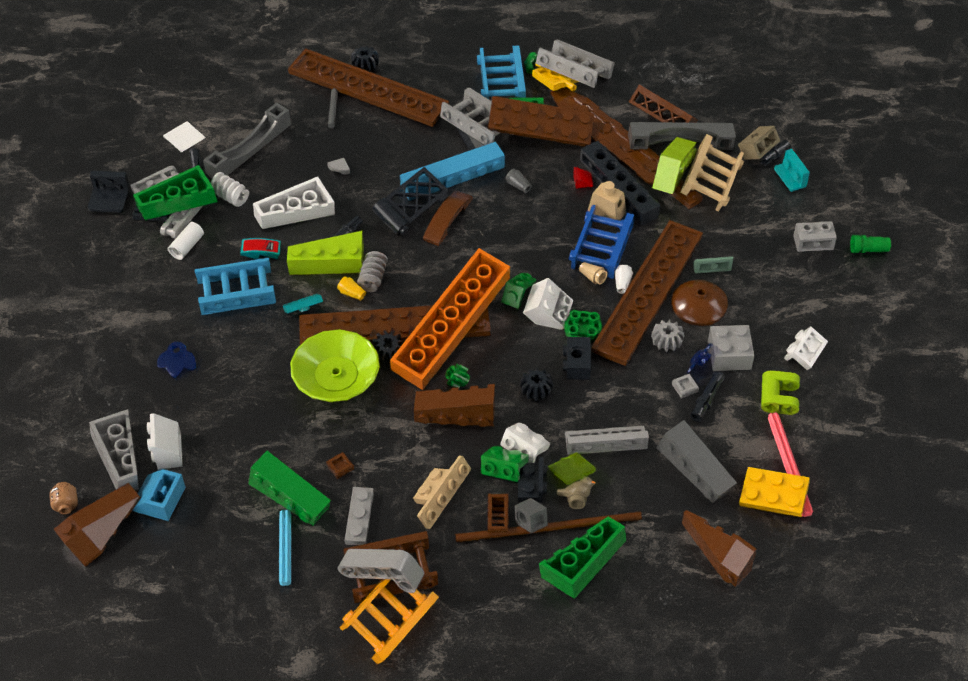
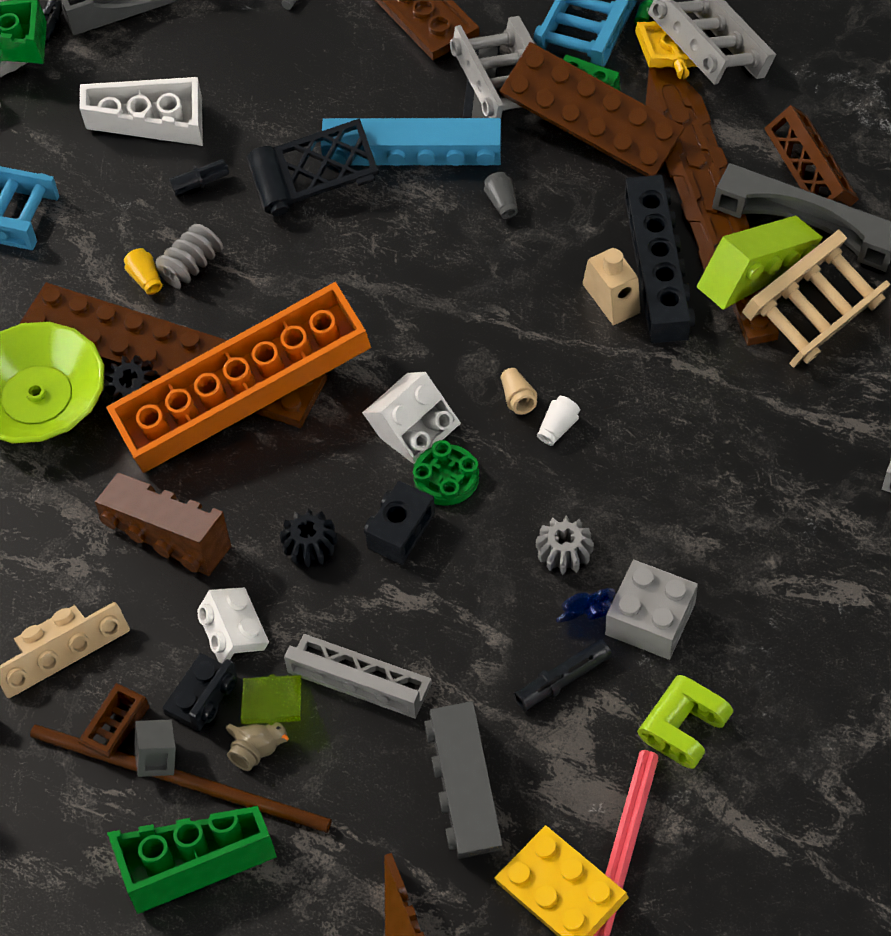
camera: 30 degrees right, 5 degrees up
(229, 189) = (74, 51): white piece -> none
(260, 246) = (61, 155): slope -> none
(302, 304) = (61, 267): teal plate -> none
(327, 255) = (142, 205): lime wedge -> none
(339, 166) = (256, 72): light grey tile -> none
(445, 216) = (355, 207): reddish brown slope -> none
(457, 376) = (200, 473): green gear -> none
(503, 463) = (175, 642): green bracket -> none
(516, 288) = (378, 365): green bracket -> none
(582, 178) = (605, 227): red slope -> none
(615, 251) = (574, 370): blue fence -> none
(646, 293) = (581, 458): reddish brown plate -> none
(685, 386) = (541, 641): light grey tile -> none
(699, 302) = (656, 524): reddish brown dish -> none
(713, 264) = (719, 456): sand green slope -> none
(806, 347) = (780, 664): white bracket -> none

